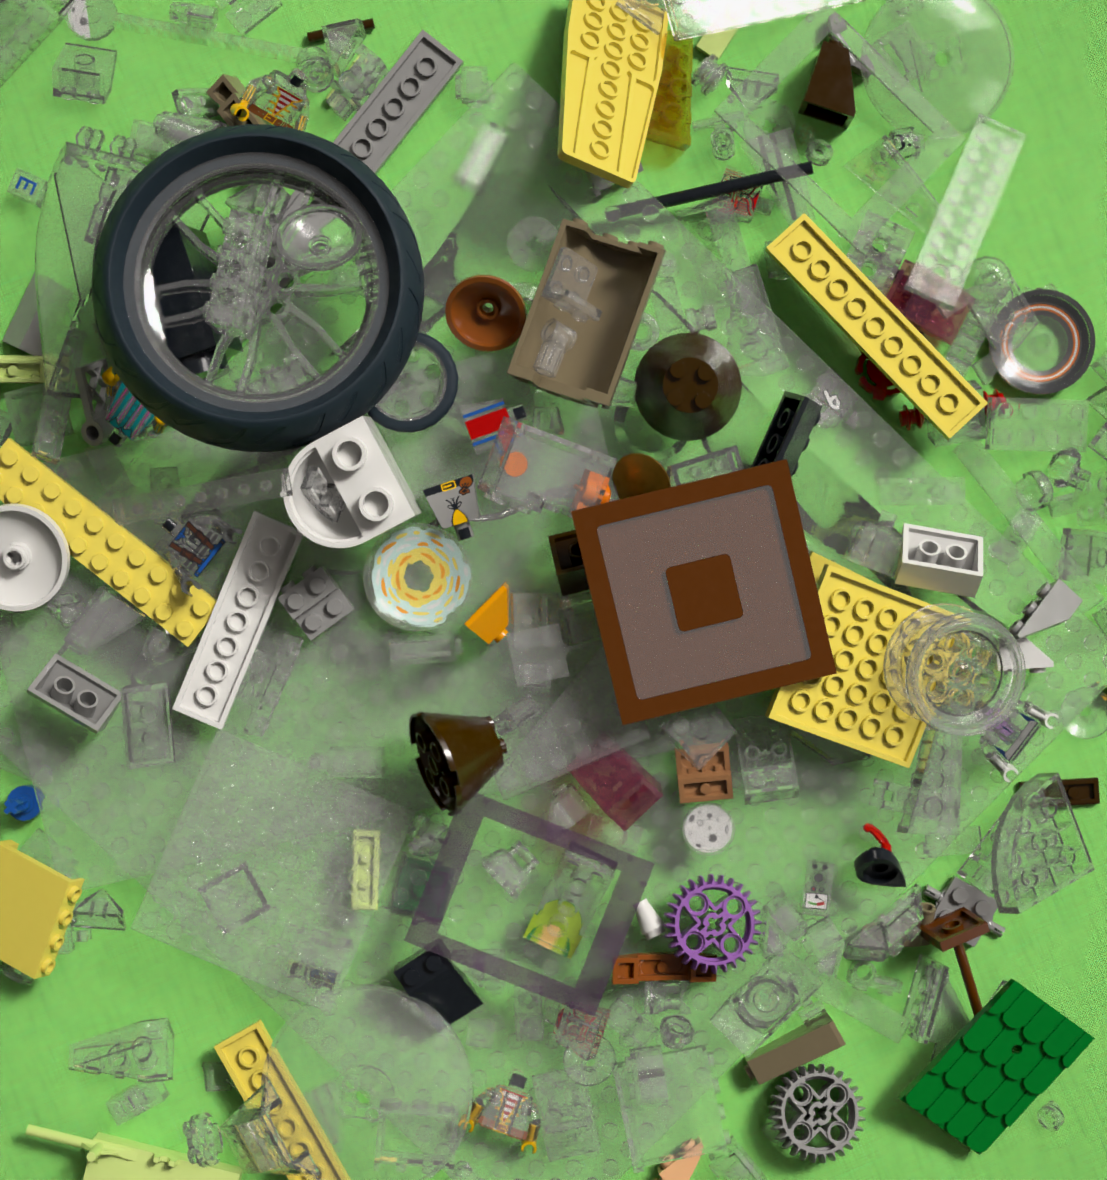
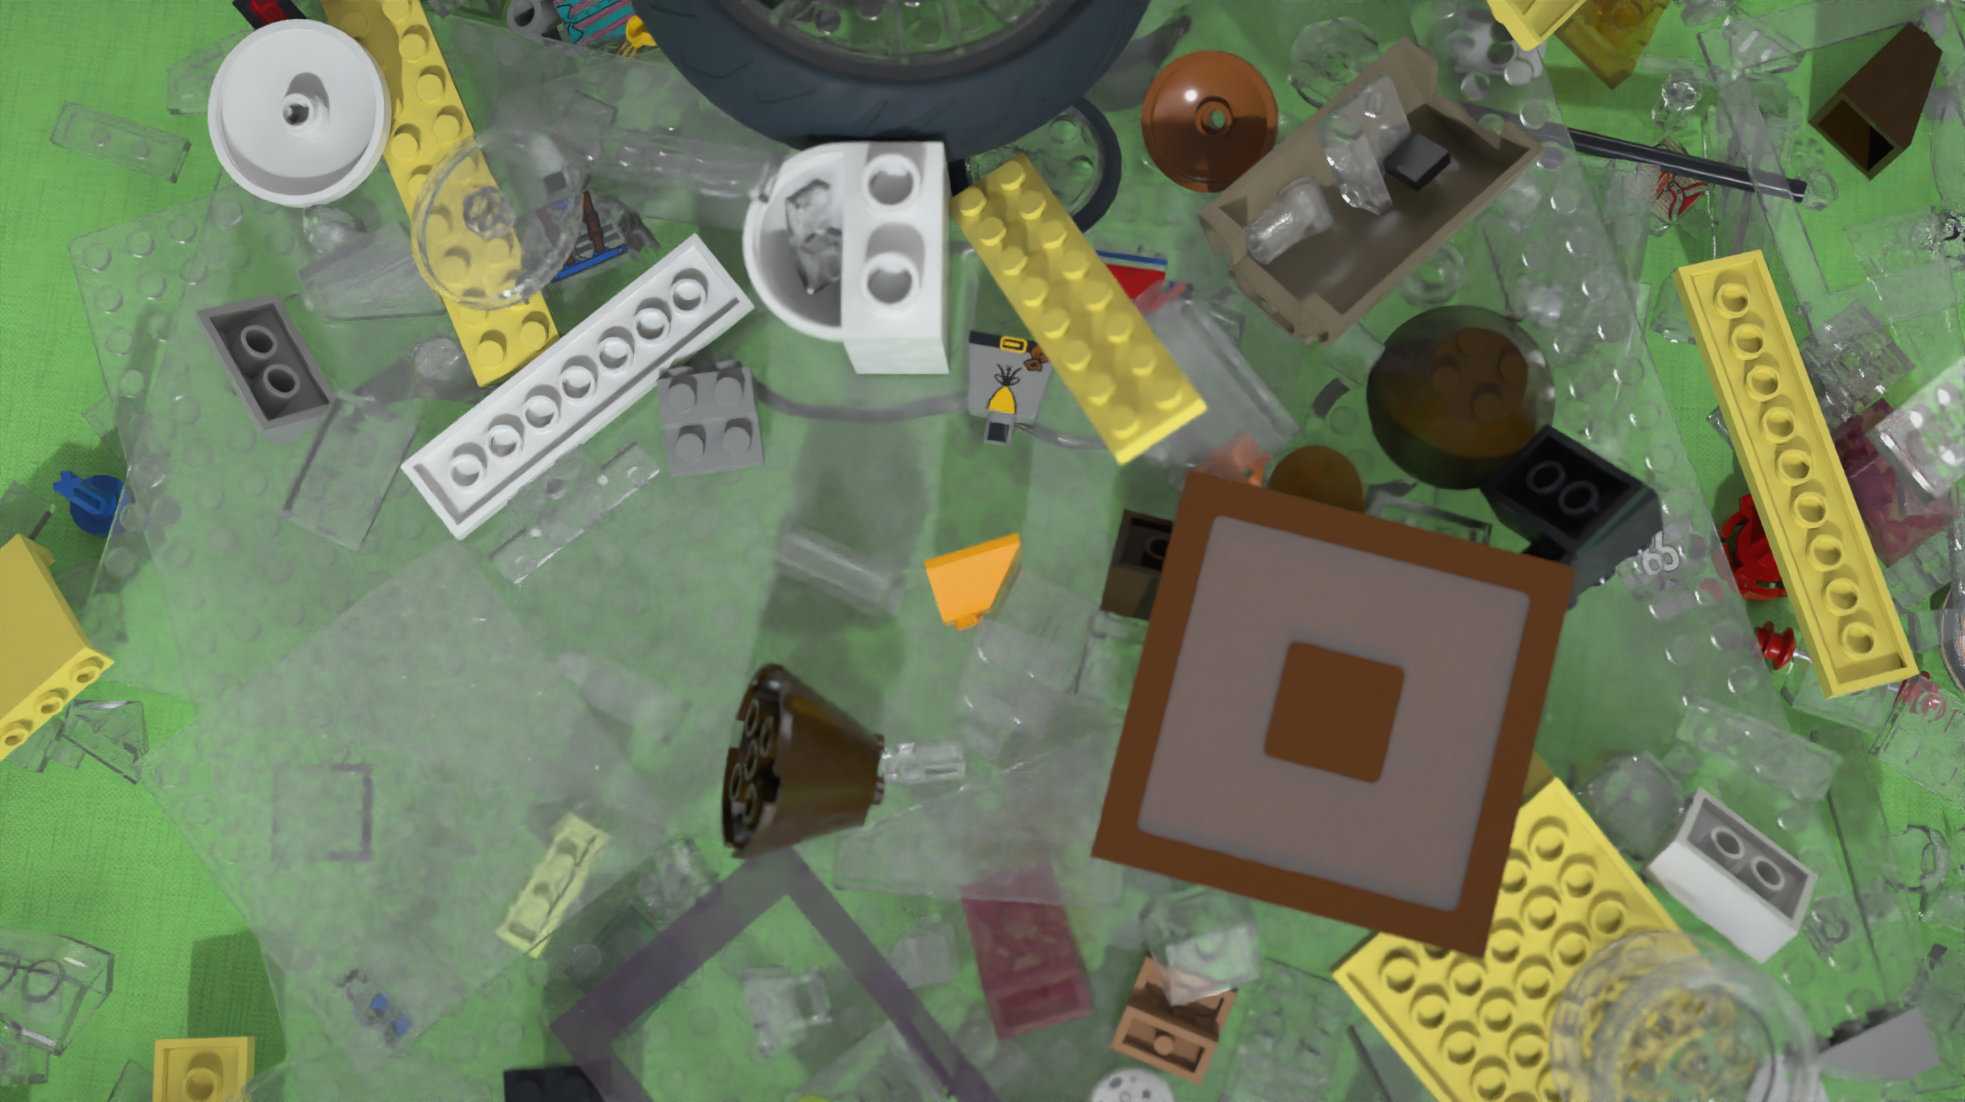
camera: 25 degrees right, 10 degrees down
(151, 561) = (496, 218): none -> clear dish
(417, 577) = (889, 460): clear dish -> none
(470, 460) = (1075, 309): none -> light yellow plate
(603, 279) = (1417, 161): none -> black tile
(761, 418) = (1561, 493): none -> black slope

